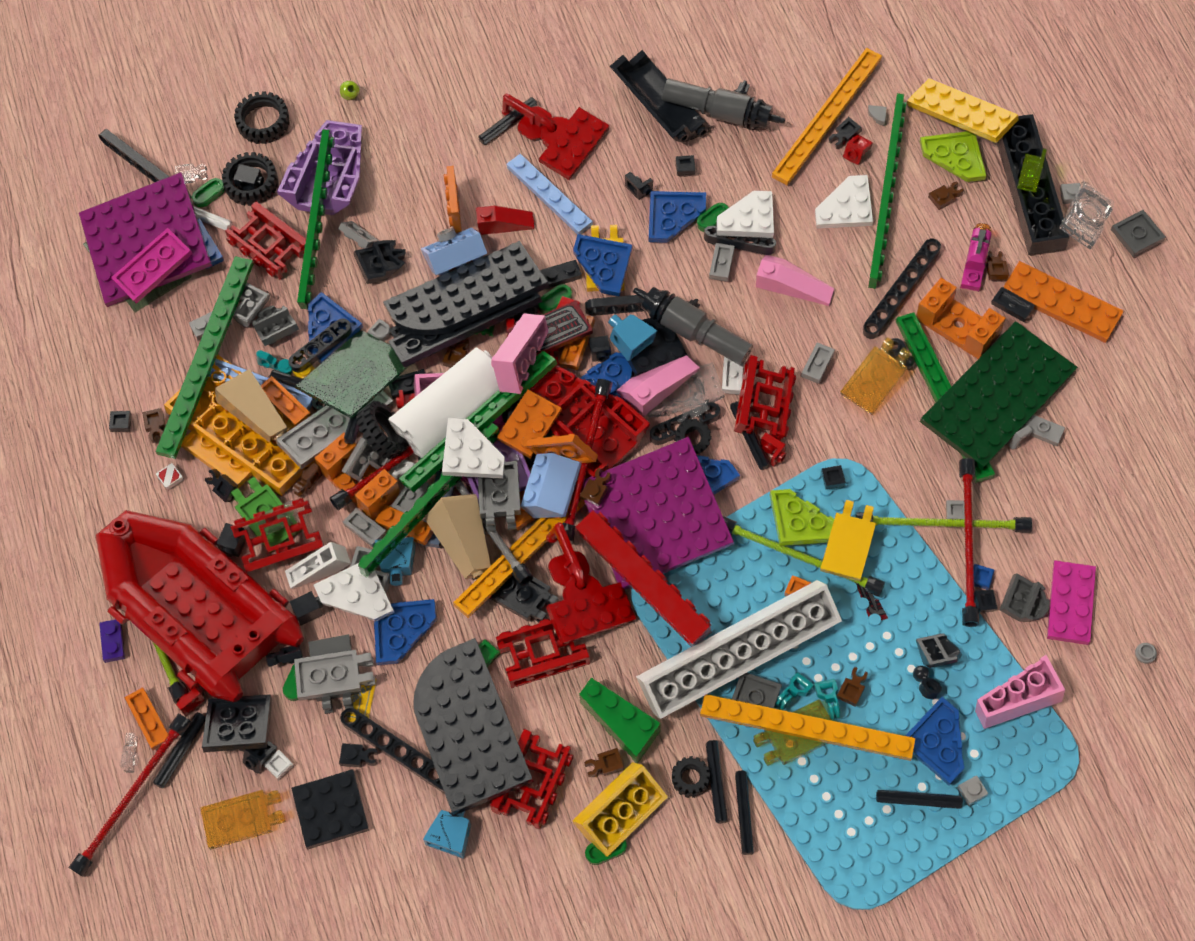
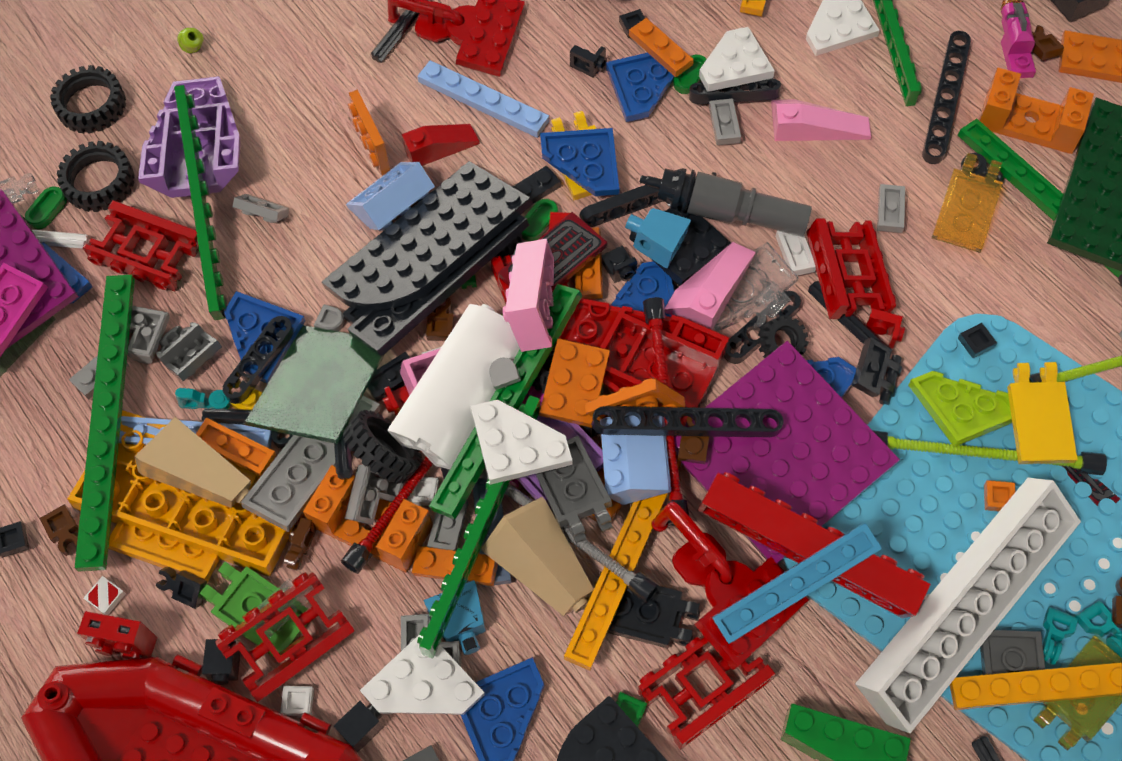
camera: 20 degrees left, 0 degrees up
(170, 503) = (117, 635): none -> red piece
(248, 178) = (93, 175): black brick -> none
(272, 580) = (297, 701): none -> white tile
(318, 565) = (355, 659): white slope -> none
(364, 527) = (400, 586): light grey plate -> none
(380, 260) = (299, 232): black plate -> none
(446, 234) = (374, 178): light grey tile -> none
(480, 402) = (503, 373): none -> light grey tile
(600, 479) = (675, 428): none -> black beam
(618, 597) = (796, 582): none -> dark azure plate
(695, 190) = (661, 47): none -> orange plate
(747, 474) = (872, 368): none -> black plate
(1012, 304) = (1082, 79): black plate -> none

